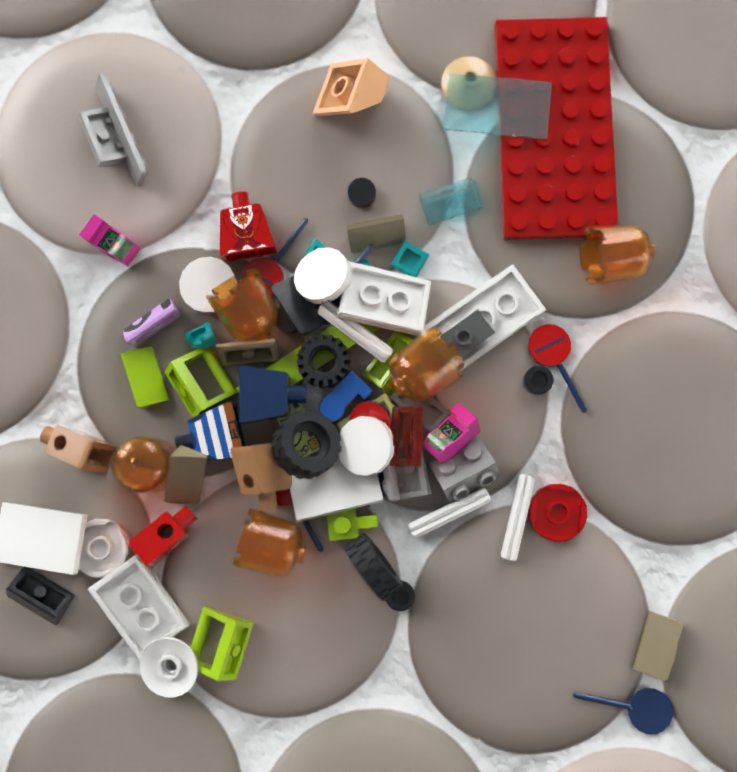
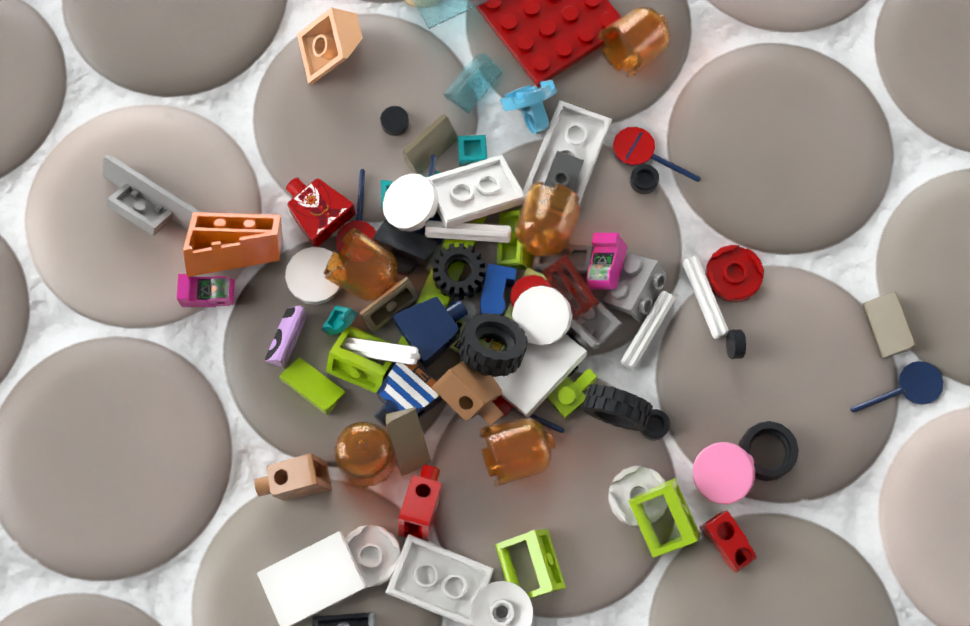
camera: 40 degrees left, 10 degrees down
(152, 213) = (231, 241): none -> orange wedge
(214, 388) = (382, 350): none -> white axle
(345, 645) = (631, 483): none -> white tile
(367, 684) = (680, 513): none -> lime tile
(392, 733) = (729, 540): none -> red leg
(426, 679) = (724, 472): none -> bright pink tile
(477, 707) = (786, 438): none -> black tyre
(484, 248) = (531, 104): none -> medium azure tile
(514, 575) = (736, 344): none -> black tile

